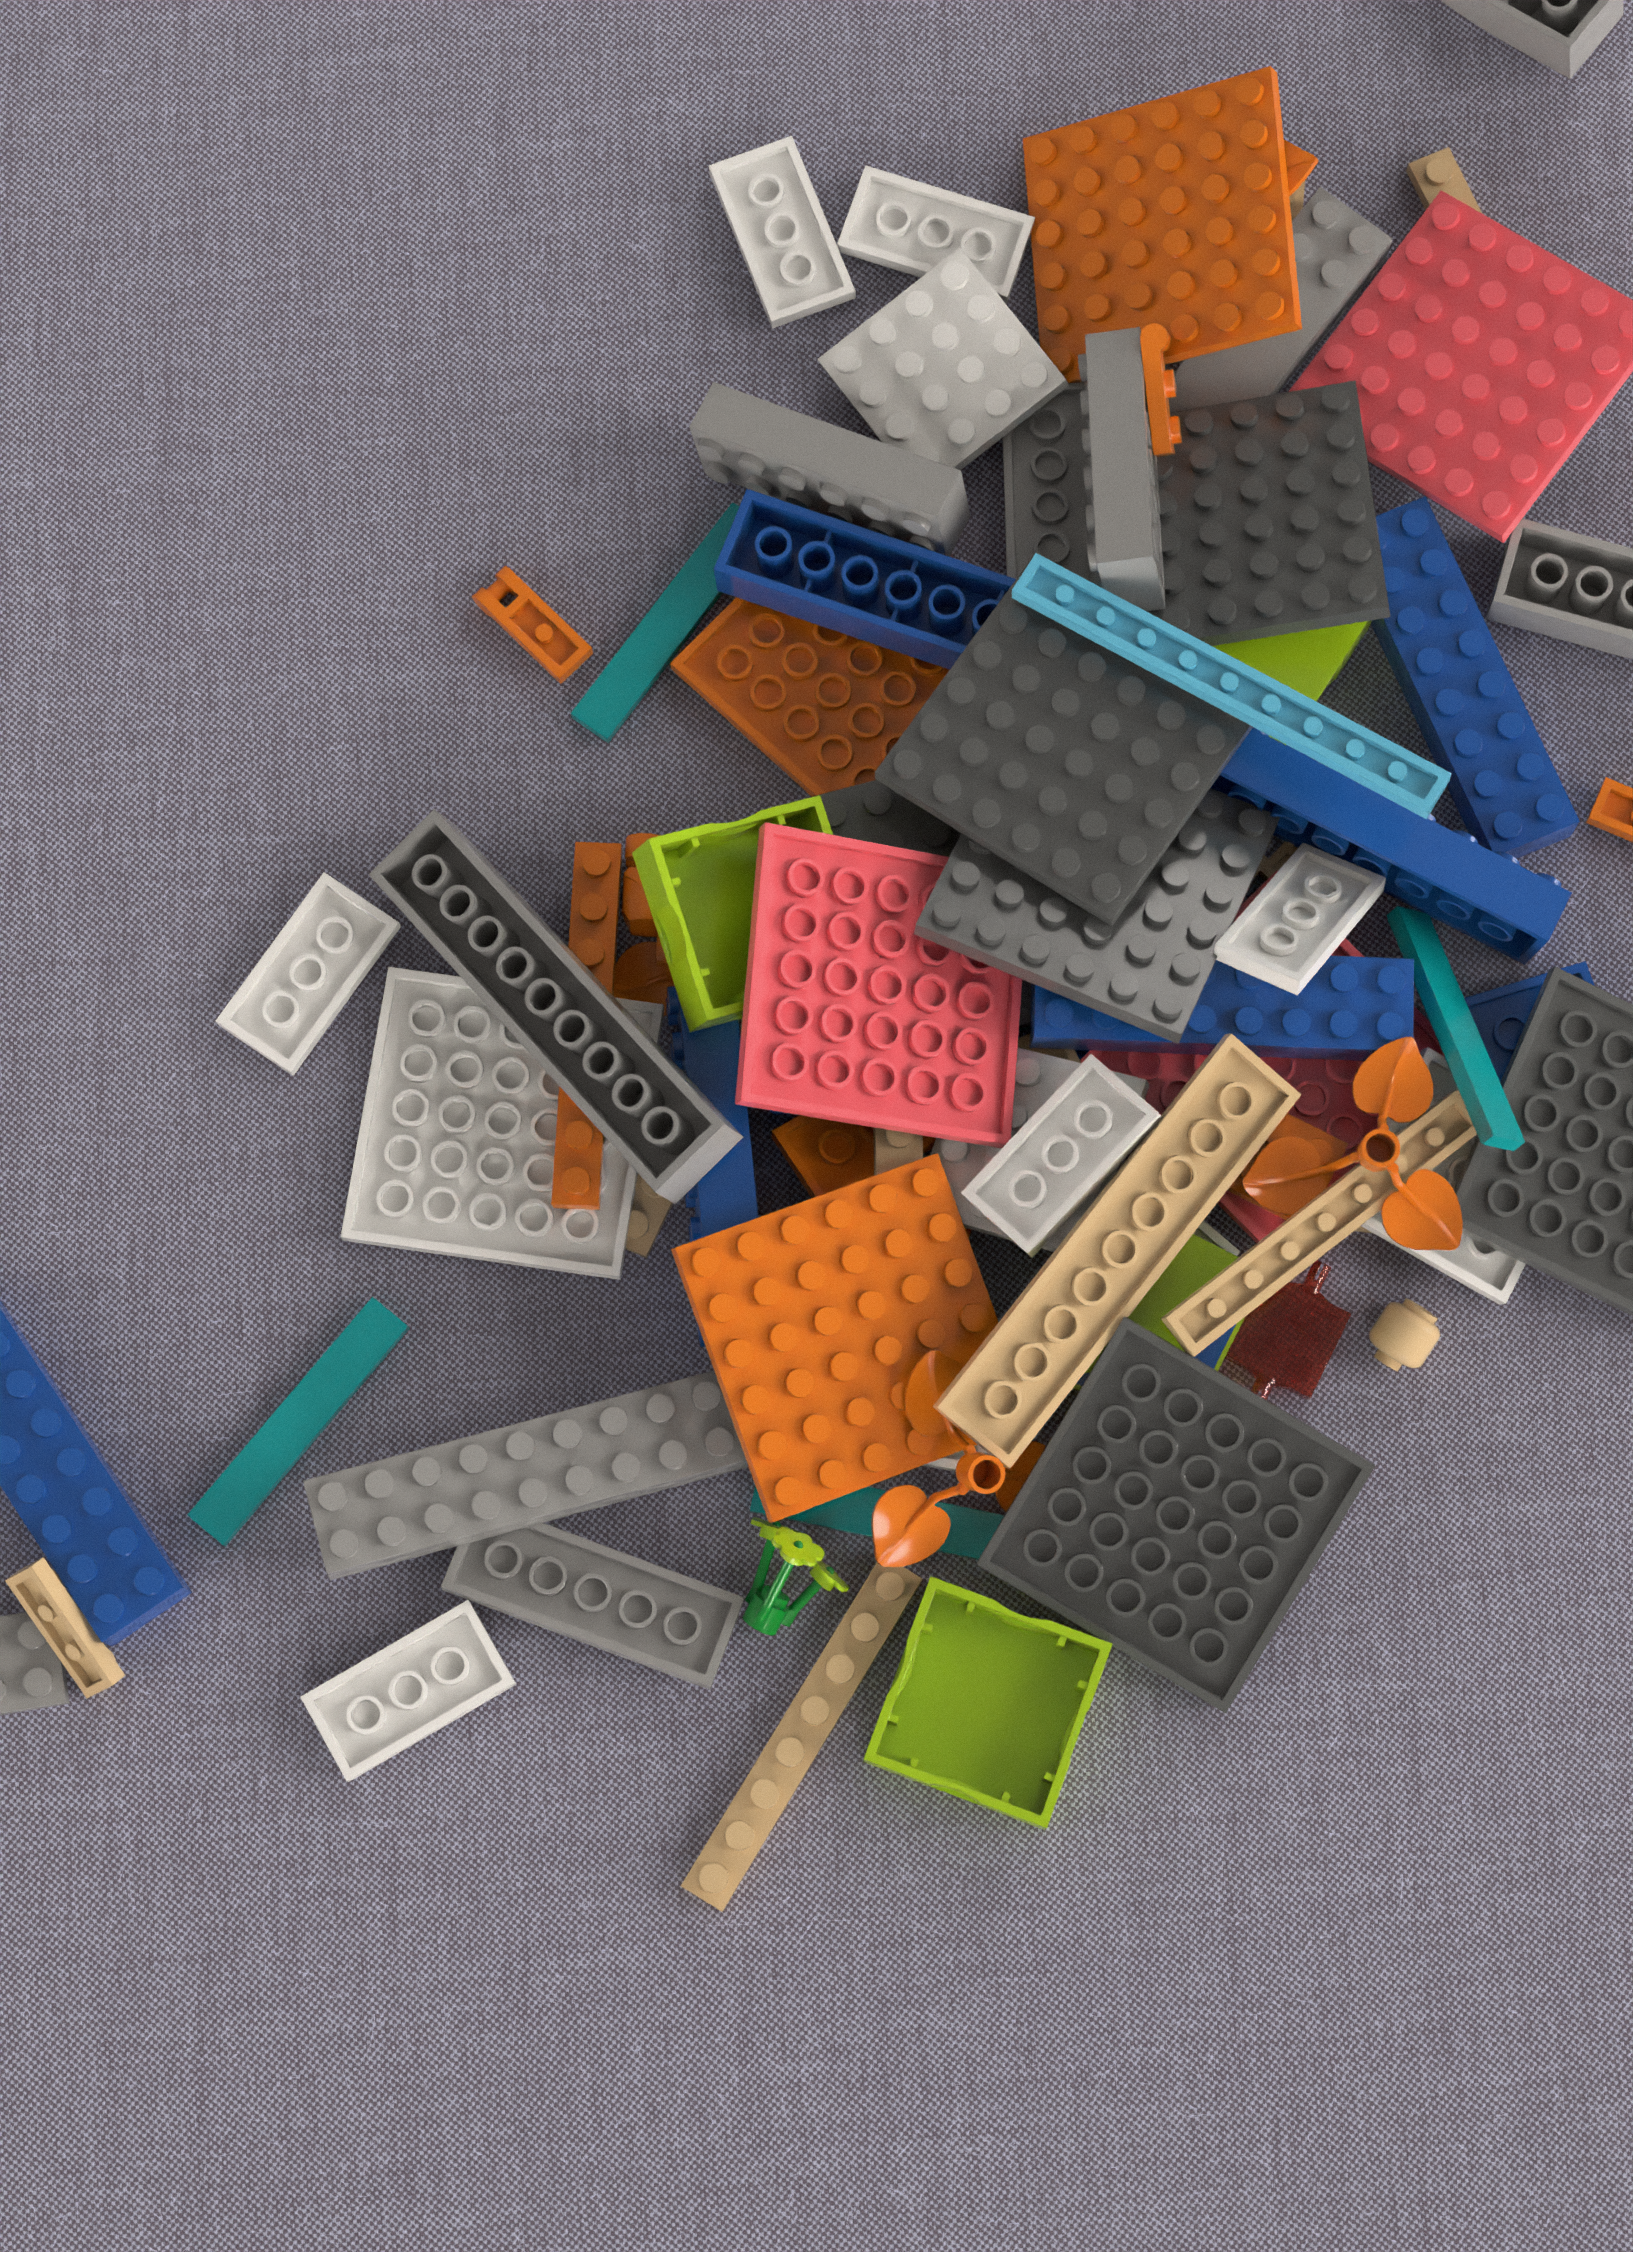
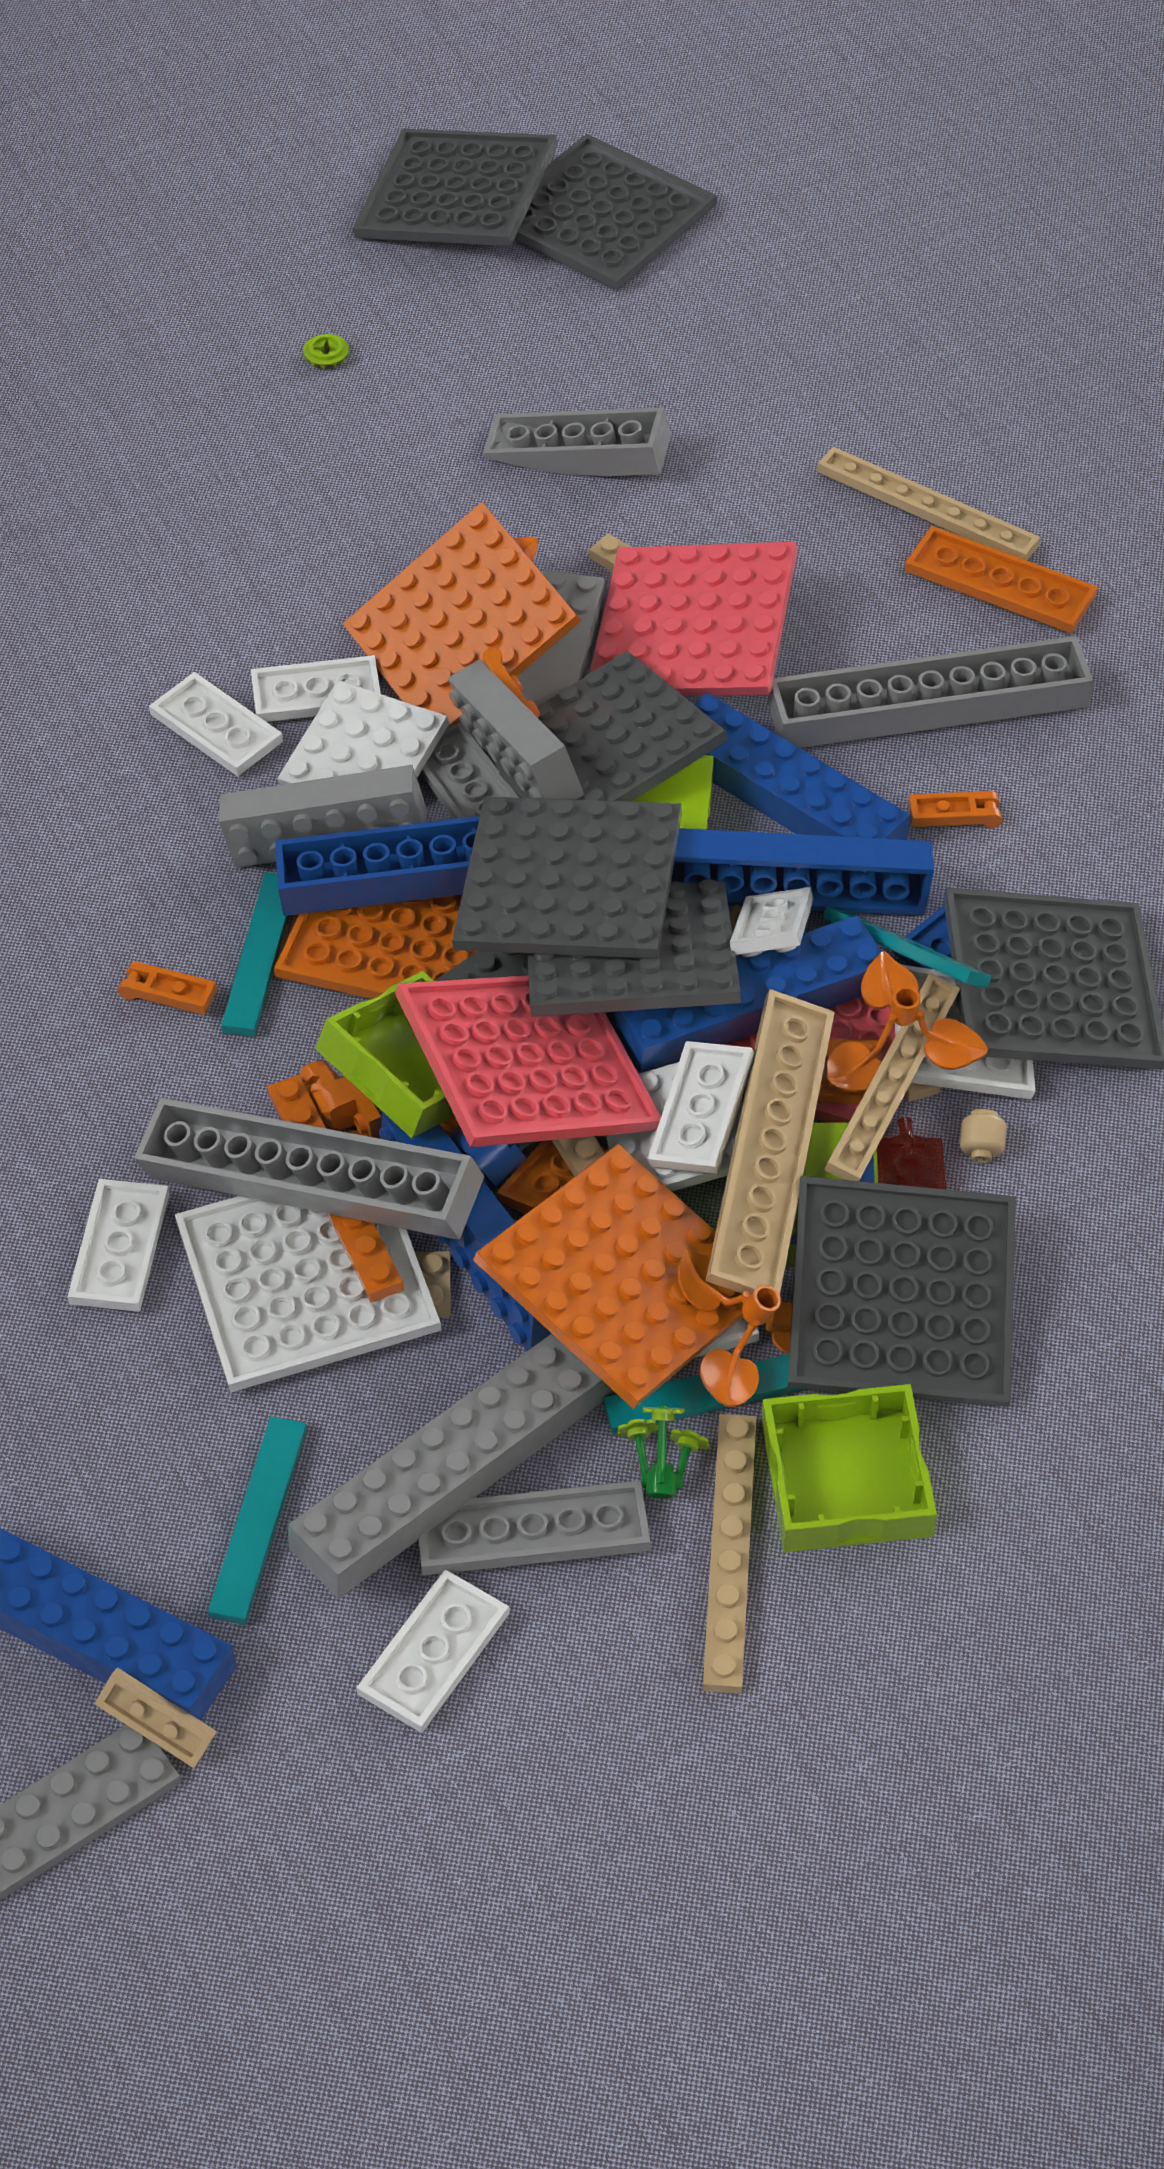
camera: 30 degrees left, 25 degrees down
(1231, 686) = (653, 798): medium azure plate -> none

